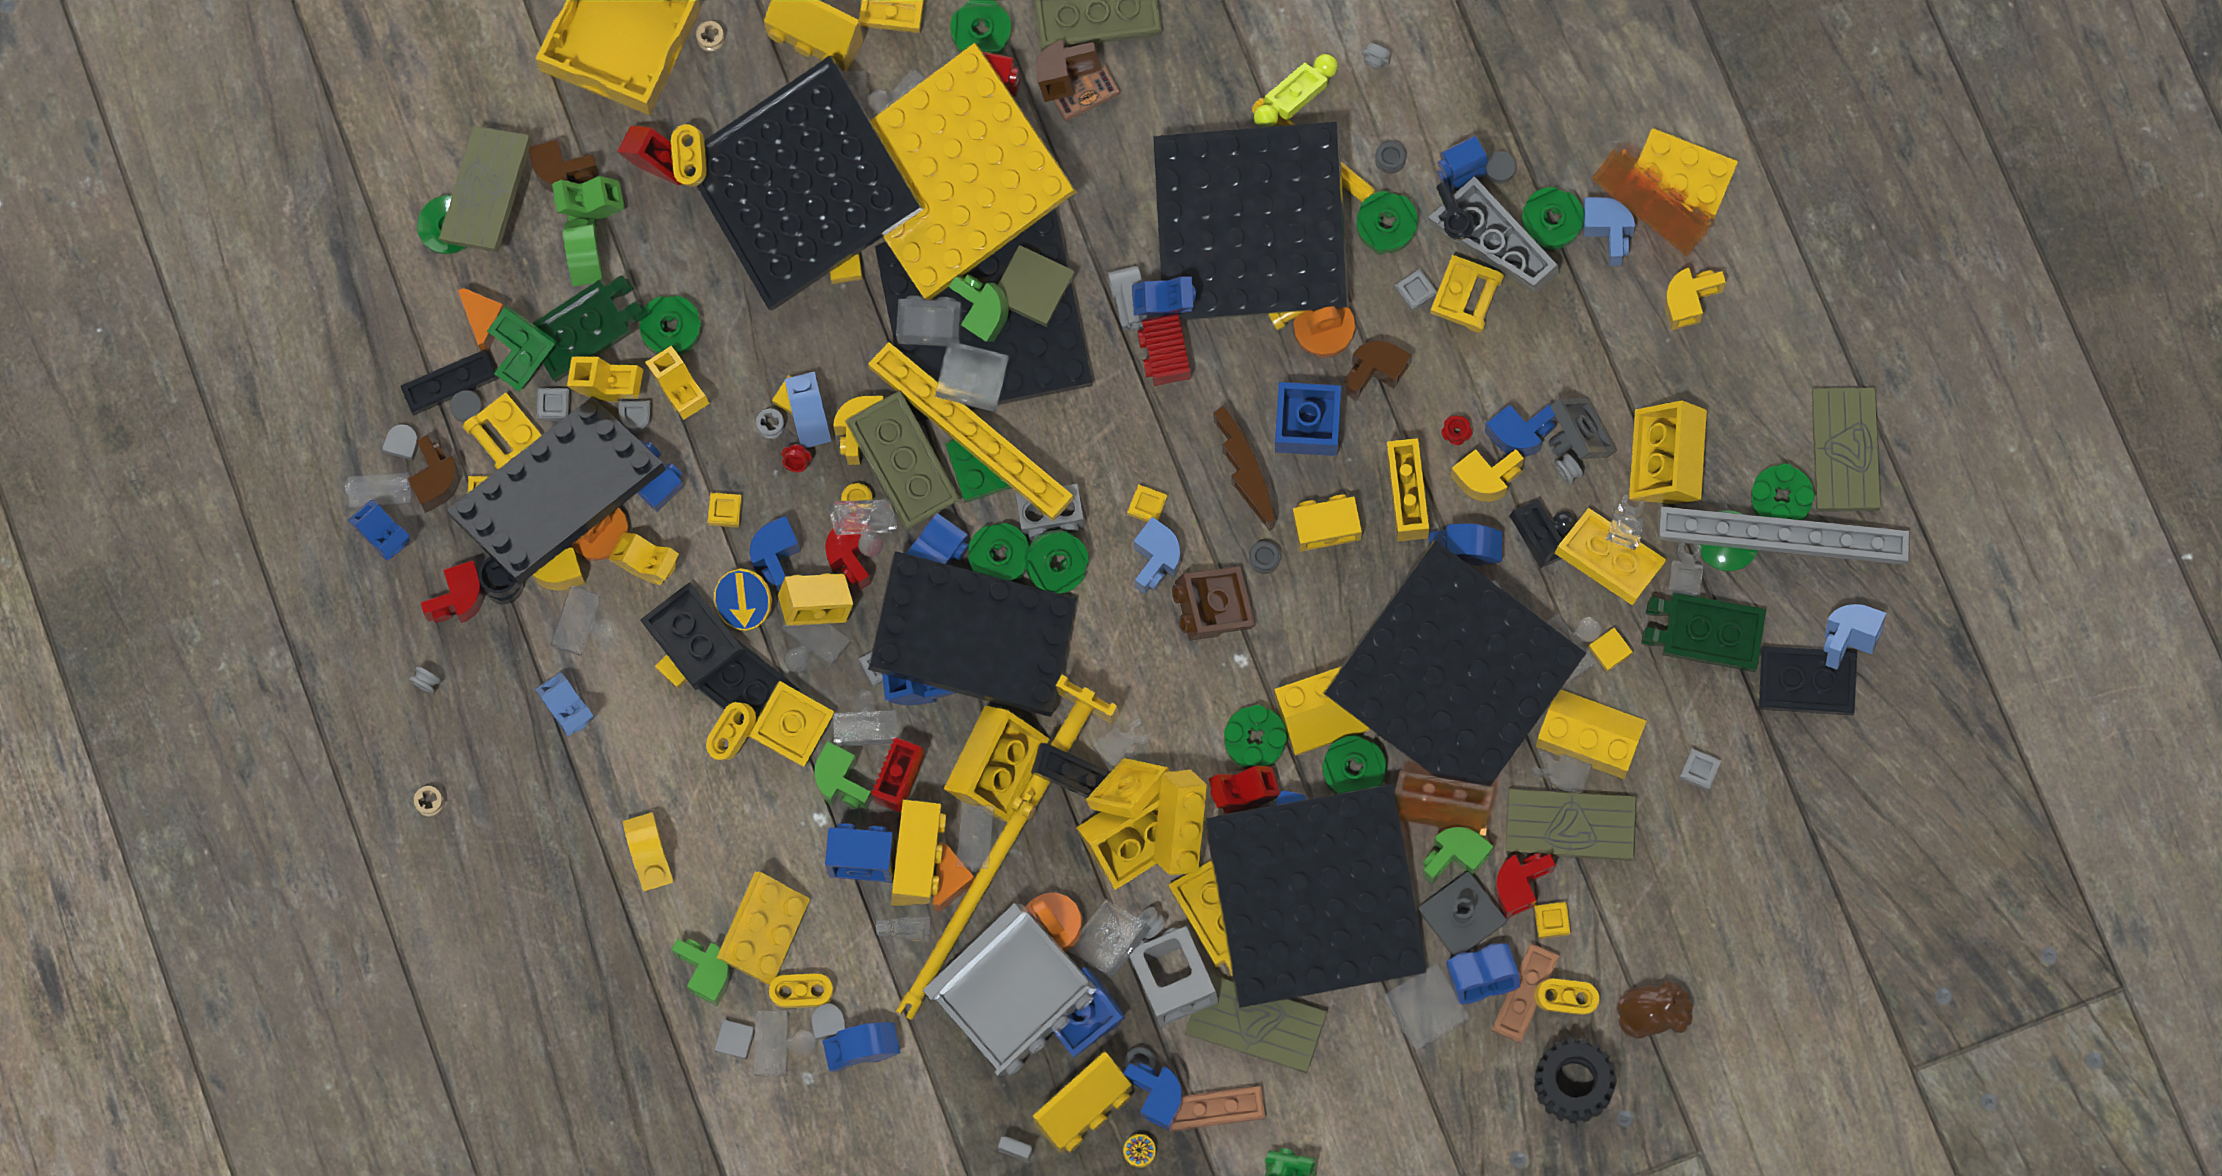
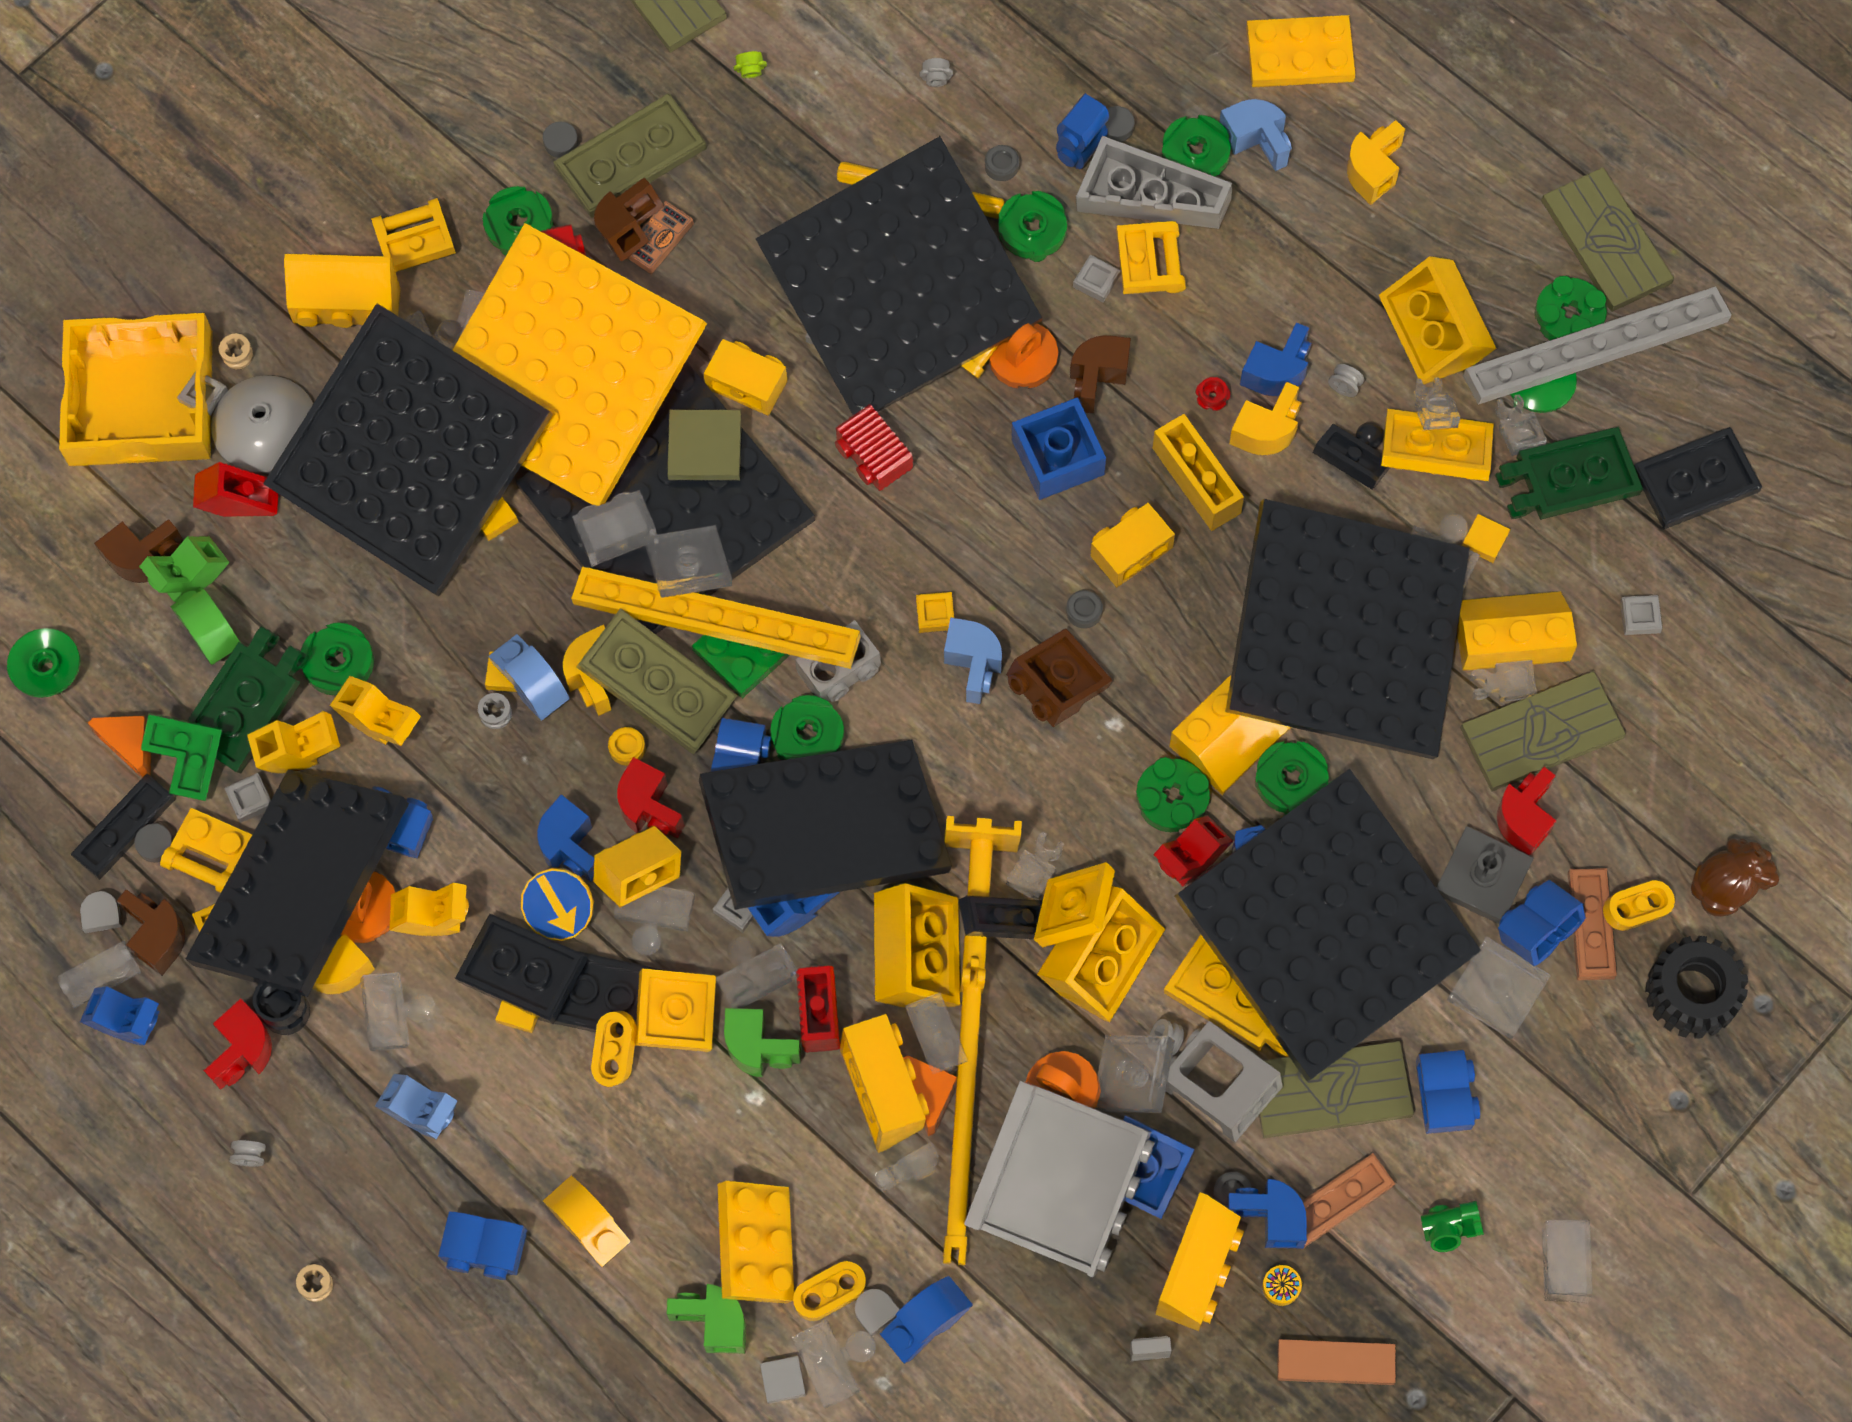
camera: 30 degrees left, 5 degrees down
(485, 189) = (68, 606): olive tile -> none
(564, 832) = (482, 1244): none -> blue brick
(635, 415) = (344, 767): light grey tile -> none
(677, 64) = (214, 393): none -> light grey tile
(688, 157) = (273, 477): yellow plate -> none
(724, 510) = (489, 822): yellow tile -> none
(725, 101) = (252, 441): none -> light grey dish
(796, 458) = (540, 732): red plate -> none
(860, 853) = (822, 1110): blue brick -> none
(864, 518) = (647, 757): clear plate -> none
(988, 309) = (673, 486): bright green brick -> none
(1039, 556) = (853, 711): green plate -> none
(1095, 243) = (746, 376): none -> yellow brick
(1121, 289) = (803, 406): light grey piece -> none
(1163, 297) = (850, 391): blue brick -> none
(1180, 822) = (1148, 913): yellow brick -> none
(1248, 477) = (1028, 536): reddish brown slope -> none
(1296, 91) = (874, 137): neon yellow plate -> none
(1340, 1067) = (1446, 1091): none -> blue brick
(1443, 802) = (1409, 765): clear orange brick -> none
(1457, 845) = (1445, 804): bright green brick -> none
(1458, 222) = (1111, 185): black plate -> none
(1471, 543) = (1294, 487): blue brick -> none
(1552, 920) = (1577, 836): yellow tile -> none
(1581, 430) = (1340, 335): dark grey tile -> none
(1652, 201) = (1289, 85): clear orange brick -> none
(1853, 627) = (1718, 402): medium blue brick -> none

